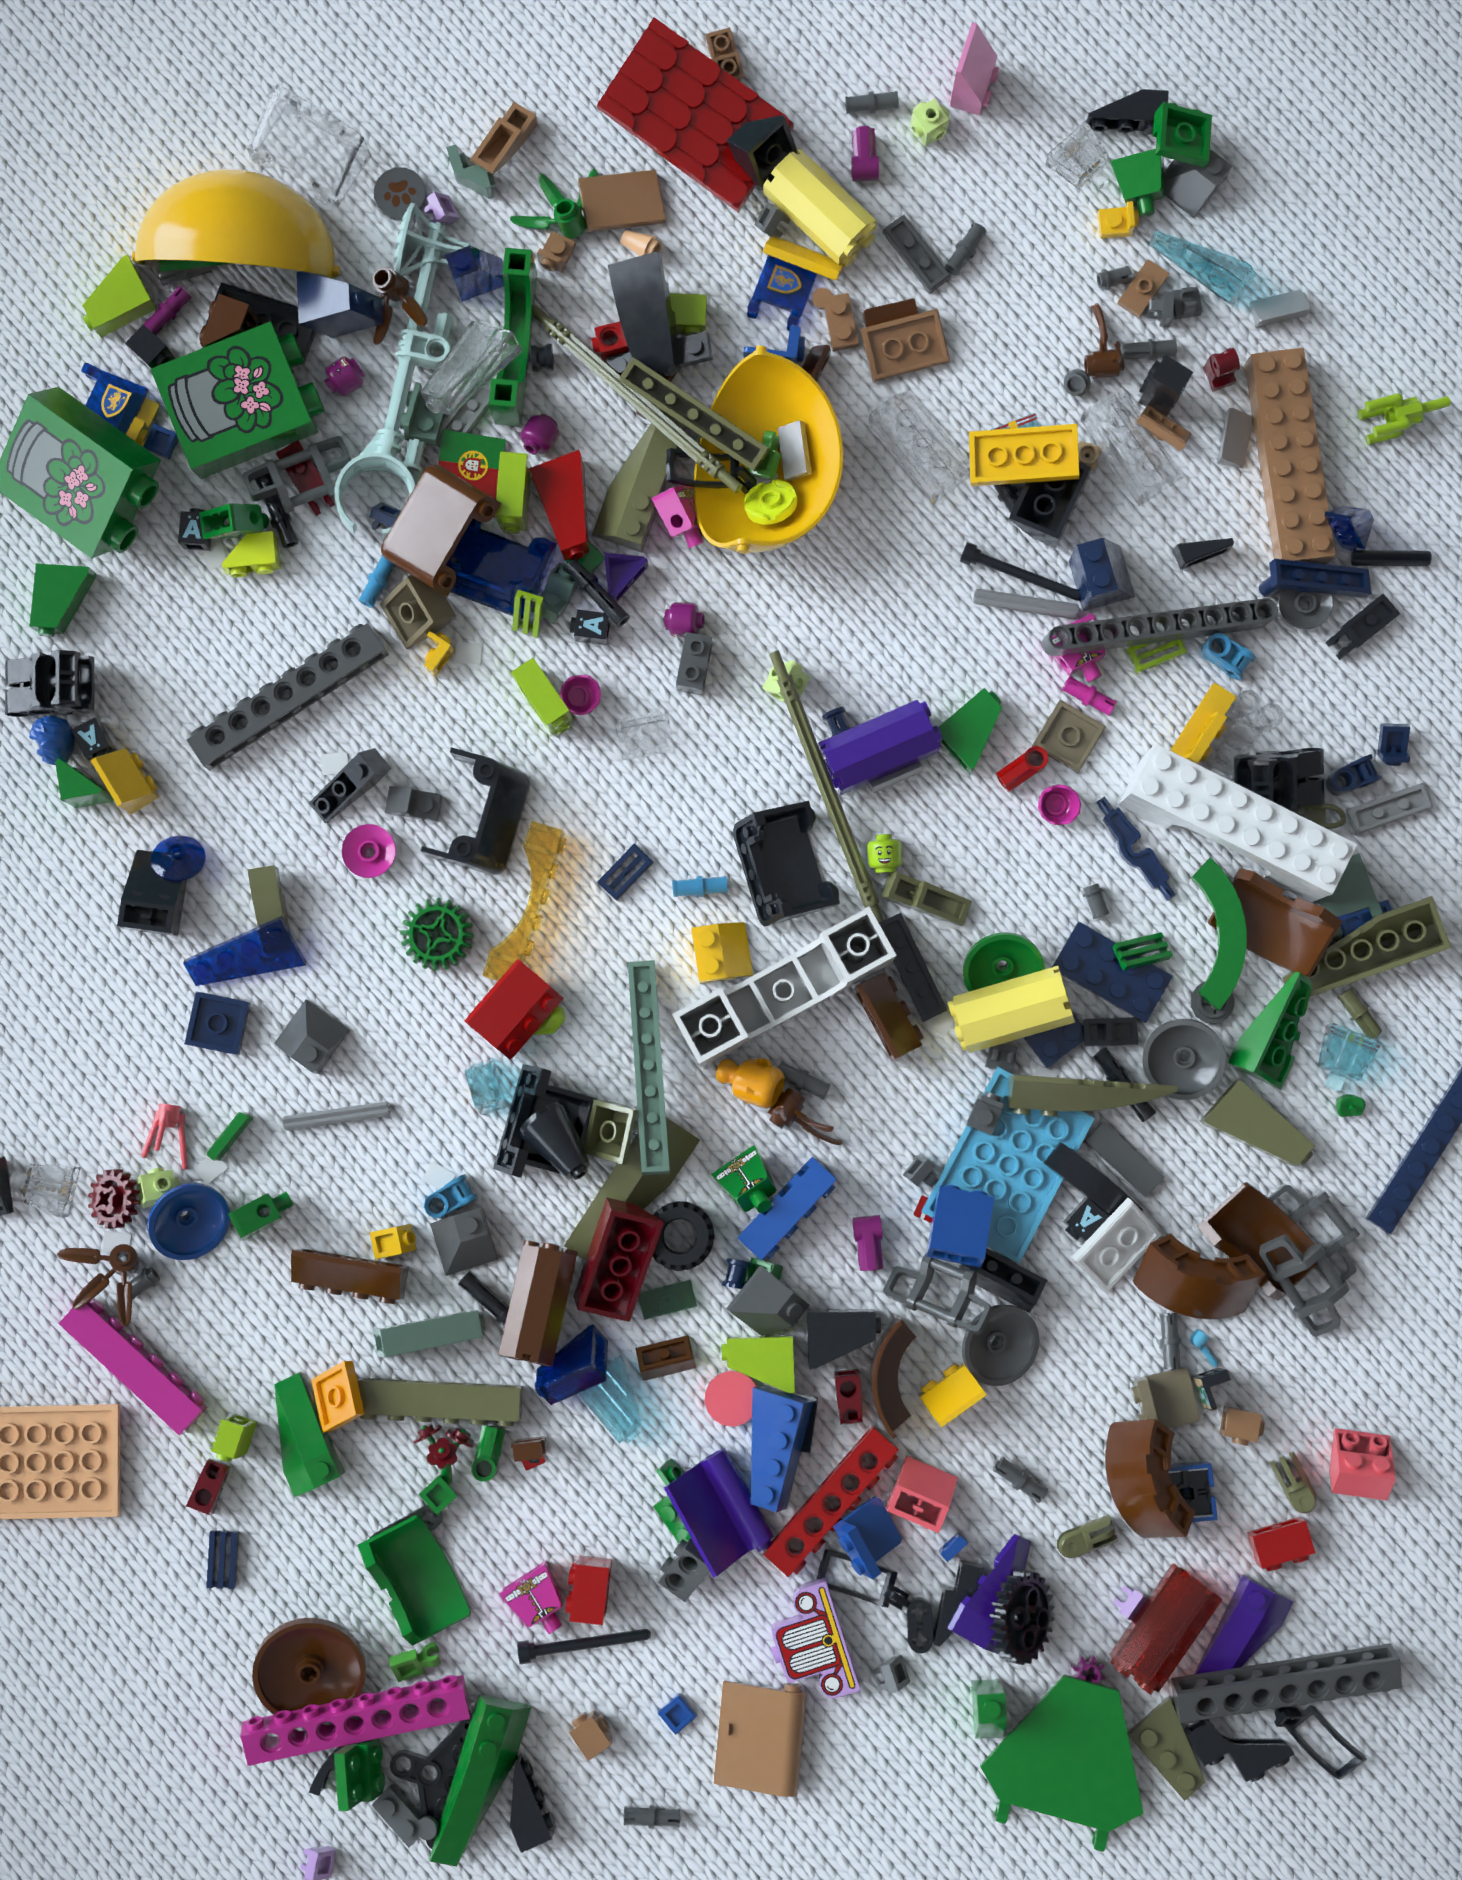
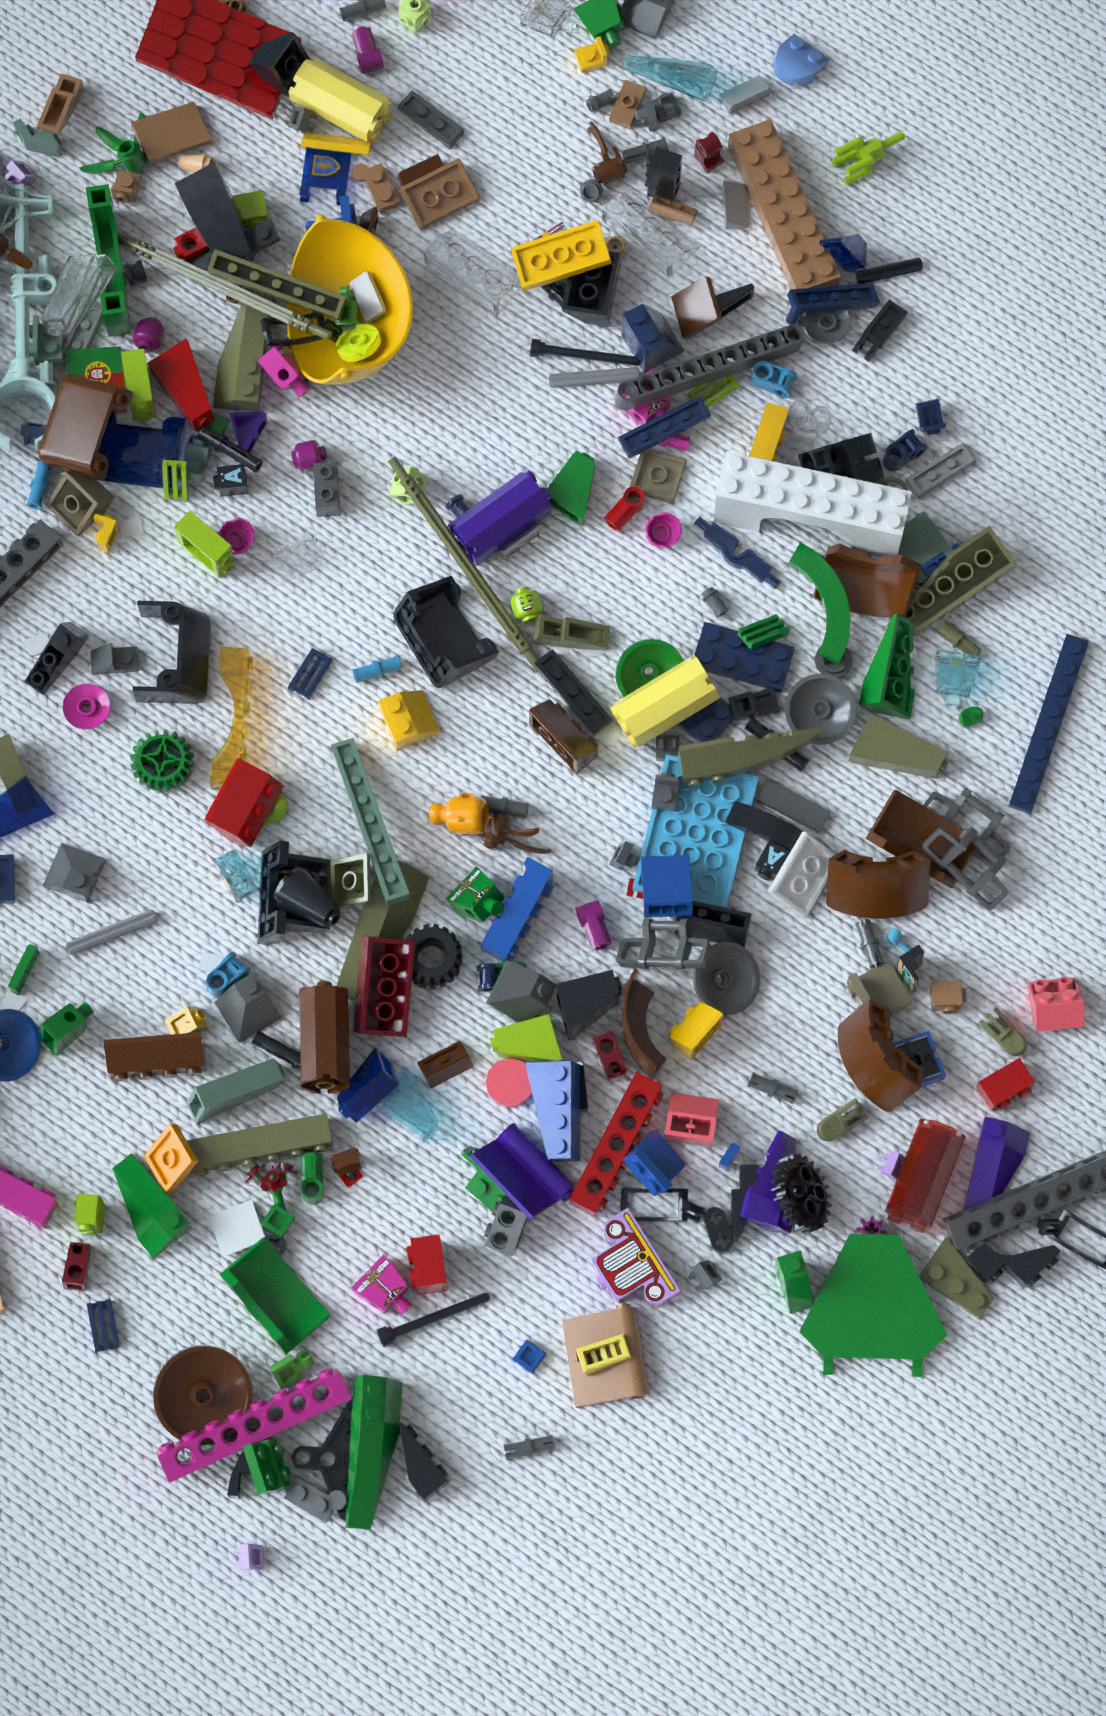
camera: 20 degrees left, 10 degrees down
(393, 1487) = (236, 1228): none -> white sticker
(475, 271) = (62, 217): clear blue slope -> none
(591, 1734) = (459, 1389): medium nougat brick -> none
(667, 1299) = (434, 1015): clear green tile -> none
(736, 1751) = (596, 1366): none -> light yellow slope
(785, 989) = (426, 767): white arch -> none
(965, 249) = (471, 106): dark grey pin -> none
(1090, 684) = (664, 427): none -> dark blue tile
(1162, 551) = (696, 307): none -> tile
(1350, 284) = (798, 61): none -> medium blue slope

